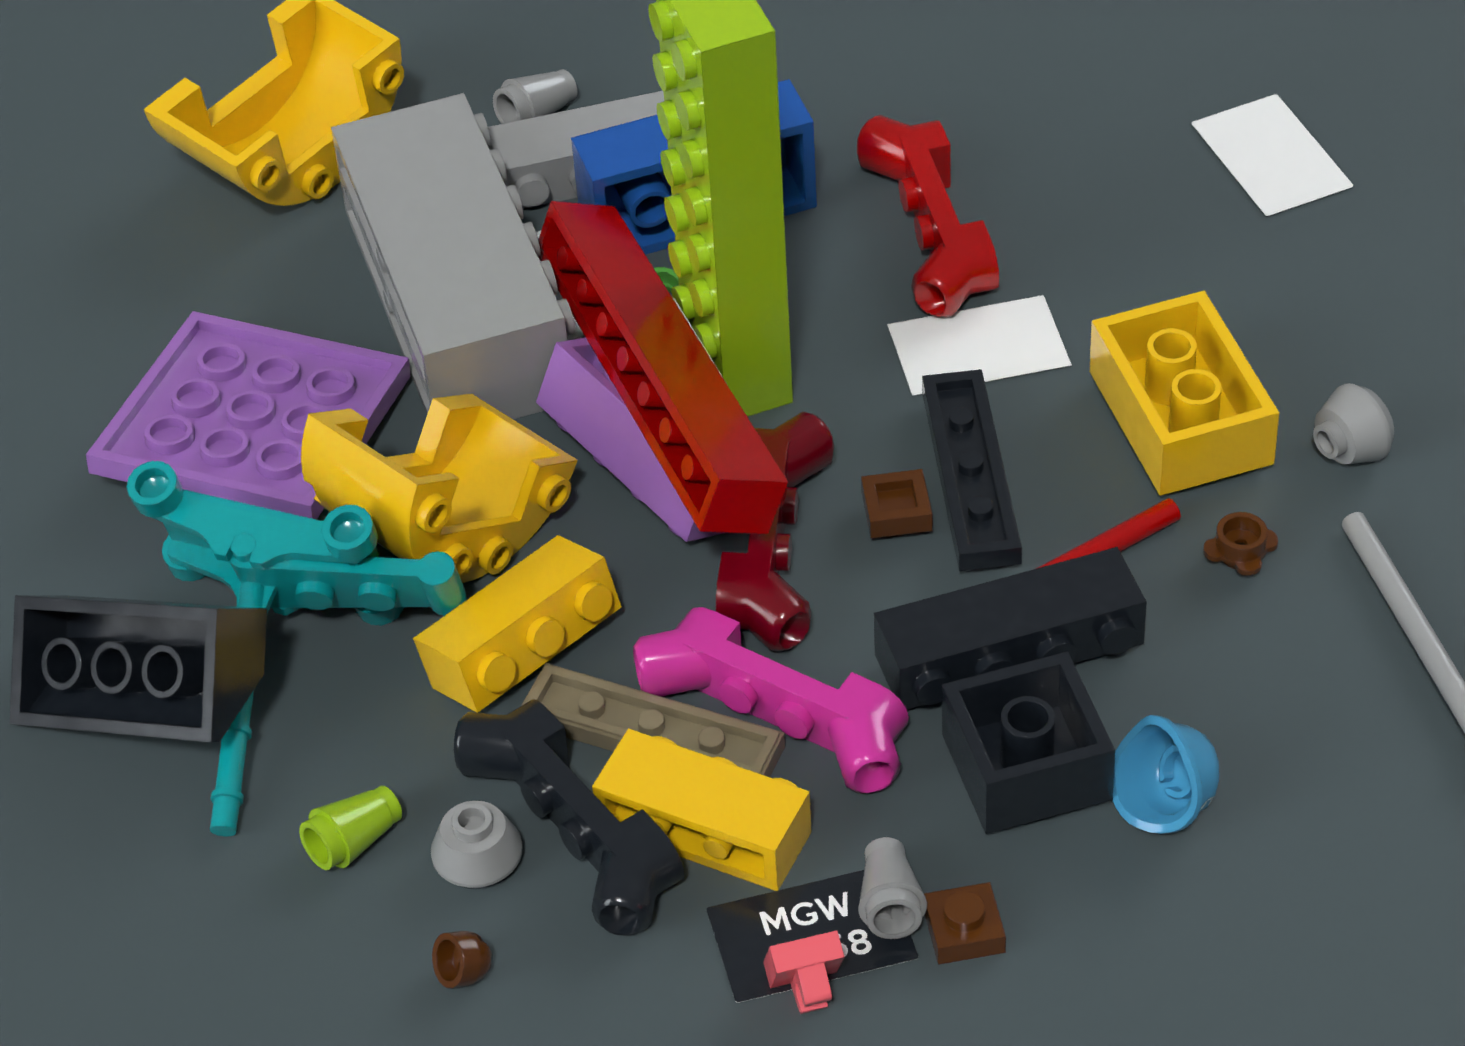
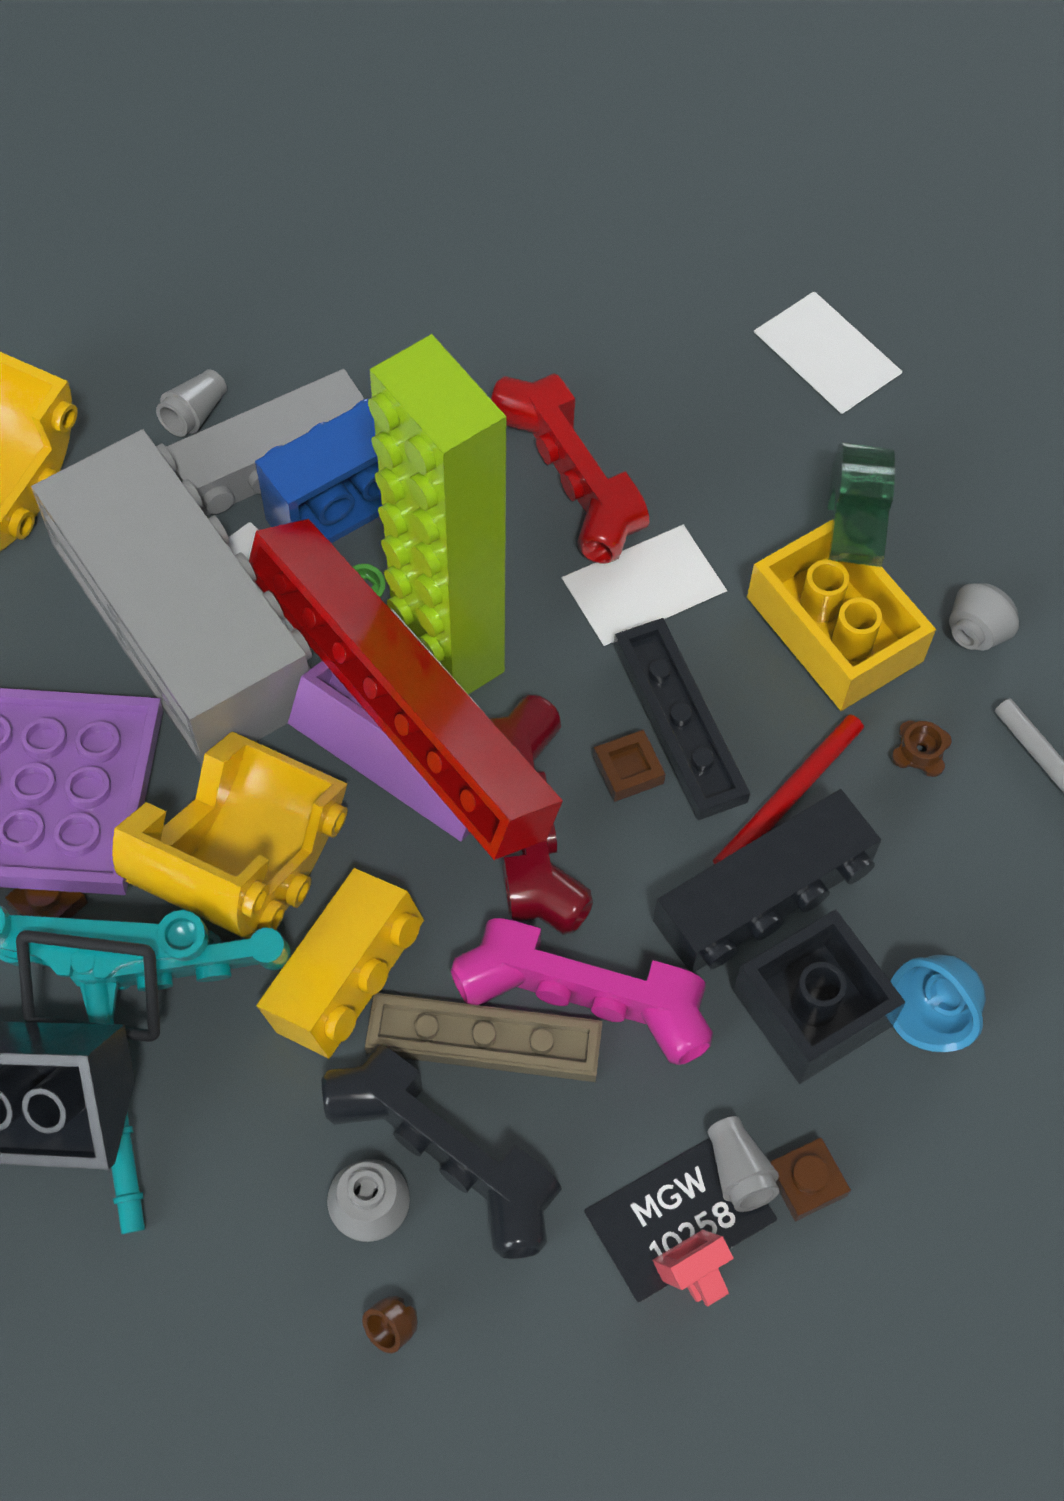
camera: 20 degrees left, 15 degrees up
(257, 520) = (150, 974): none -> black piece
(347, 827) = (248, 1208): lime cone -> none
(709, 807) = (559, 1117): yellow brick -> none
(1239, 275) = (861, 502): none -> clear green arch

